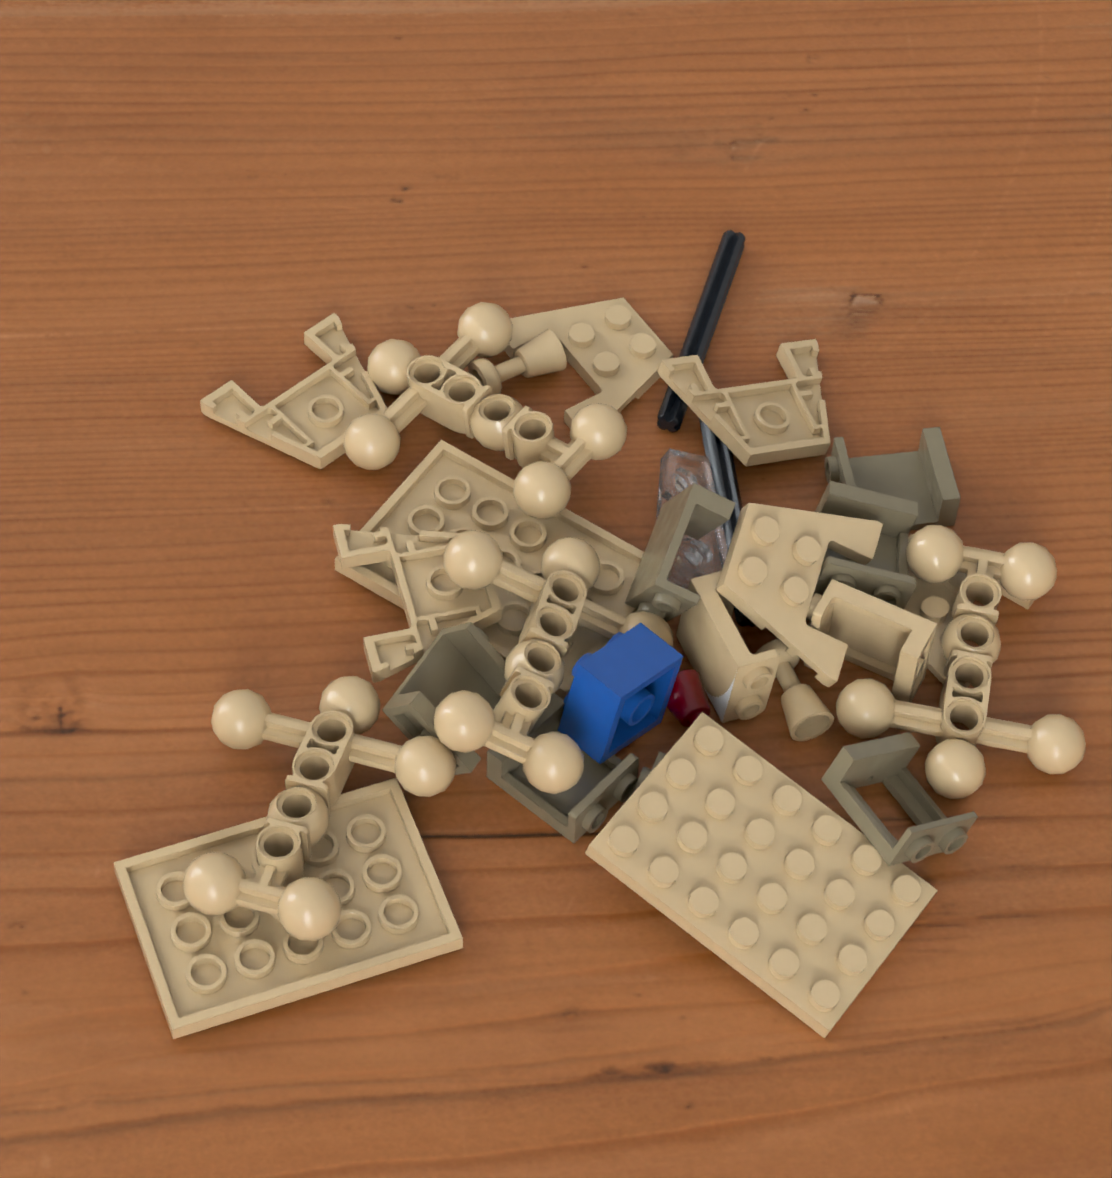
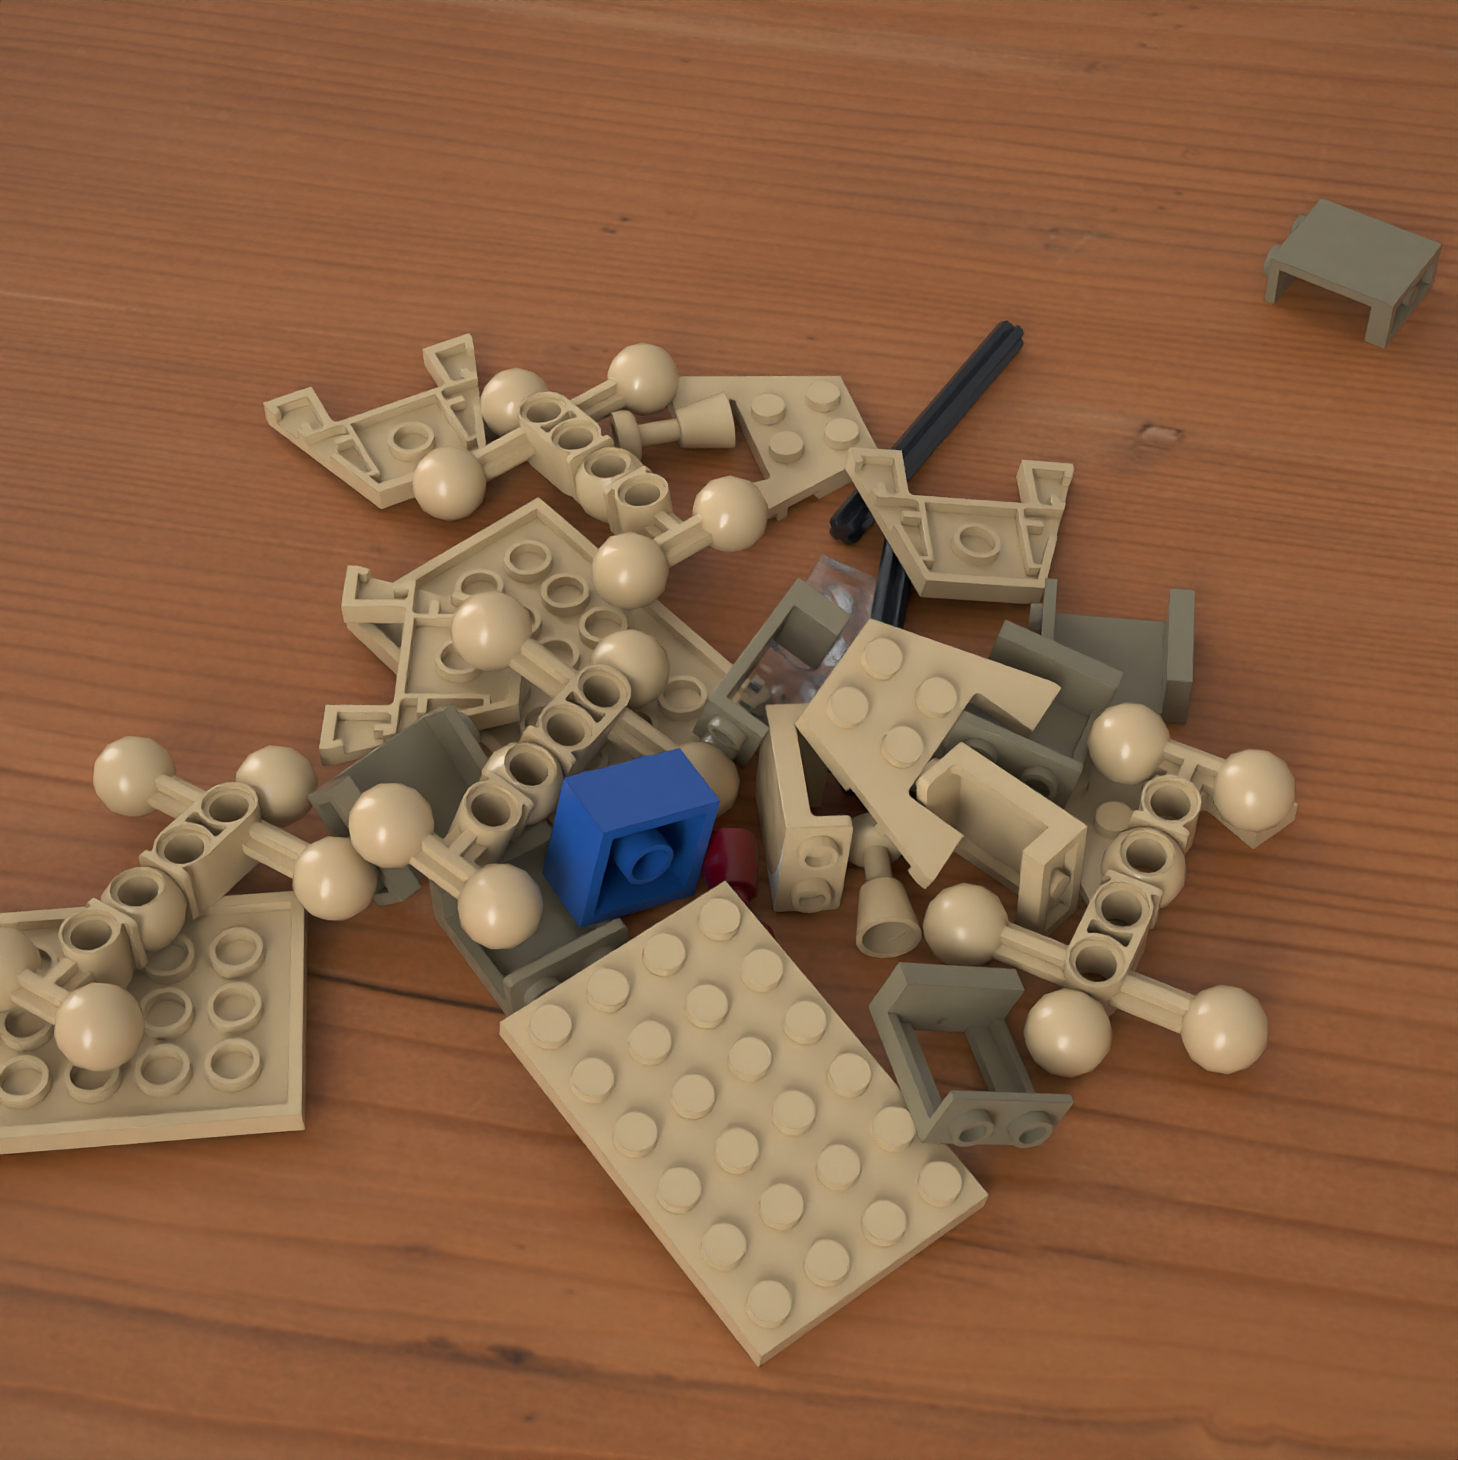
camera: 20 degrees right, 5 degrees down
(966, 136) = (1358, 260): none -> dark tan panel

